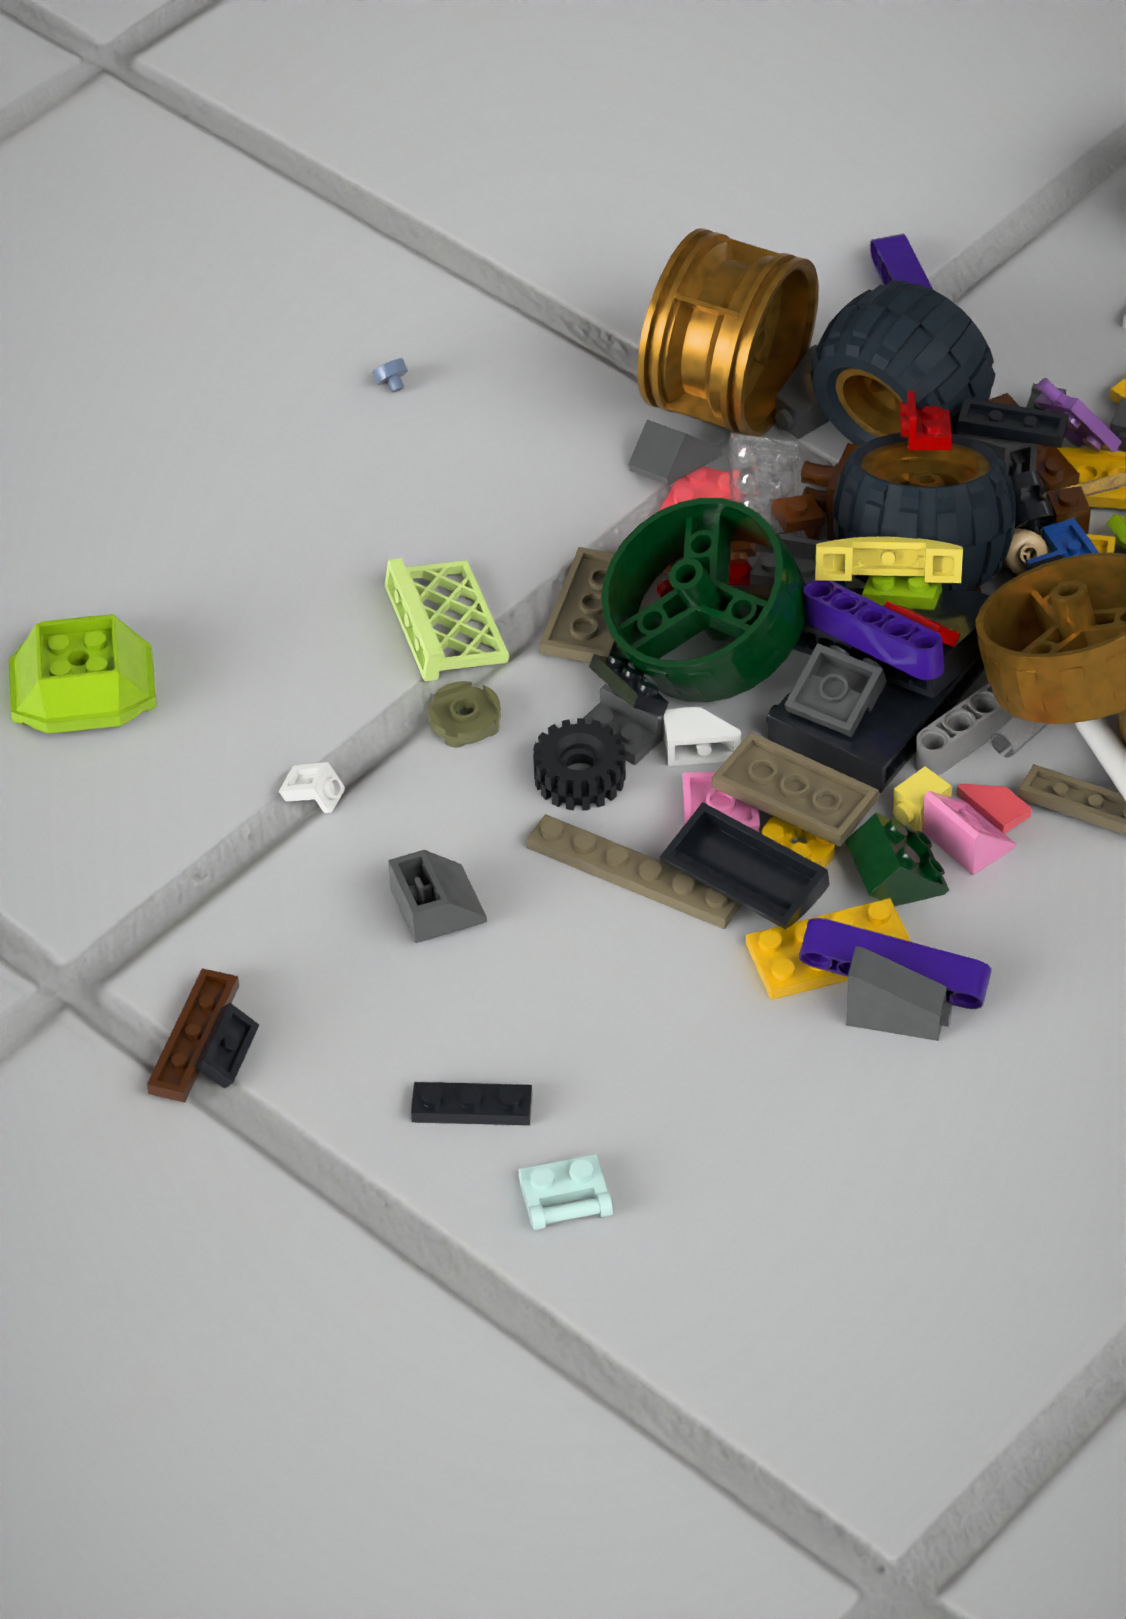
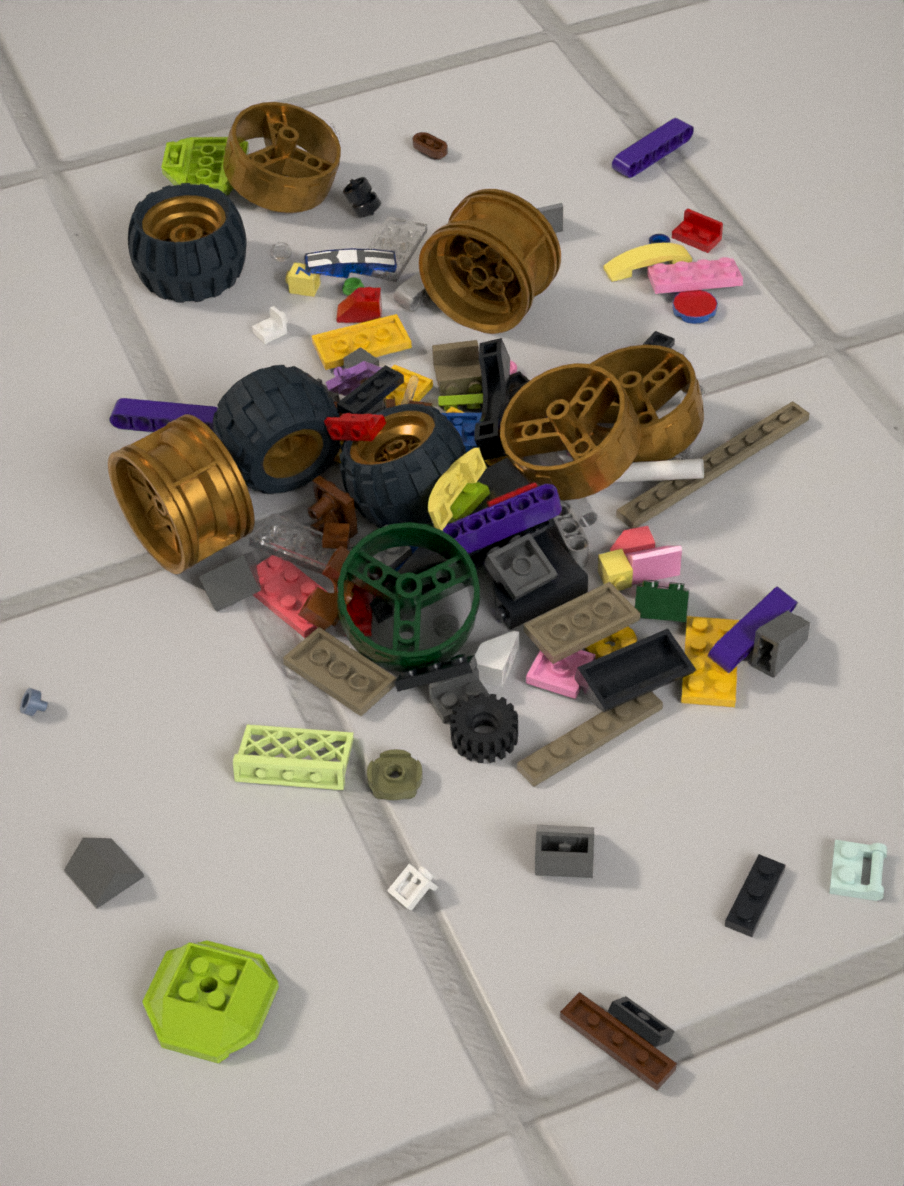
camera: 65 degrees left, 0 degrees up
(203, 528) = (101, 870): none -> dark grey slope

